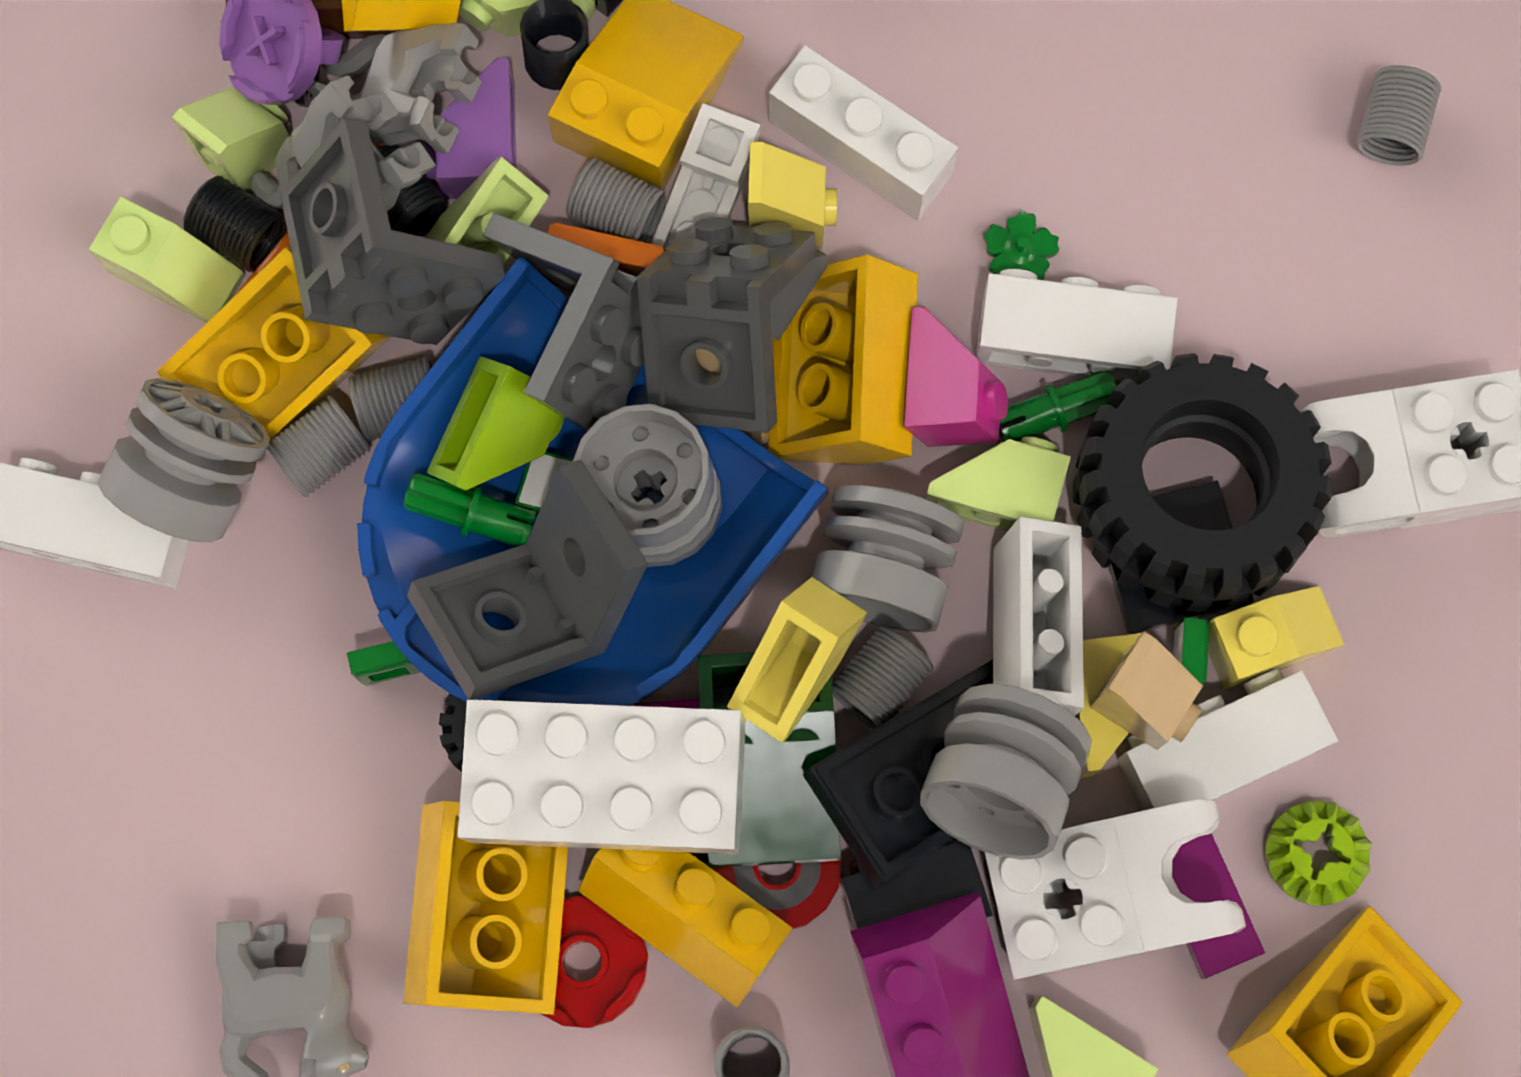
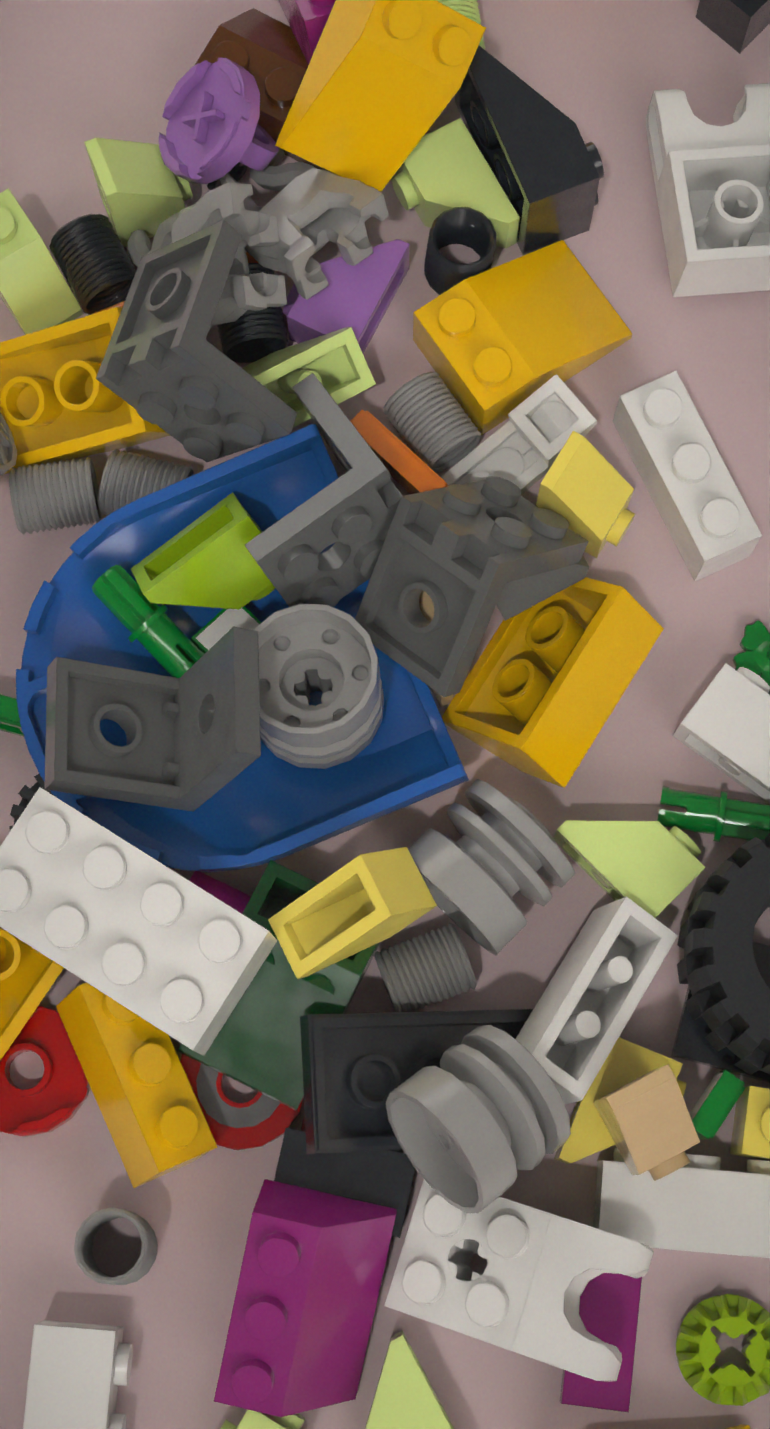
camera: 30 degrees right, 0 degrees up
(949, 389) = (633, 745): dark pink slope -> none

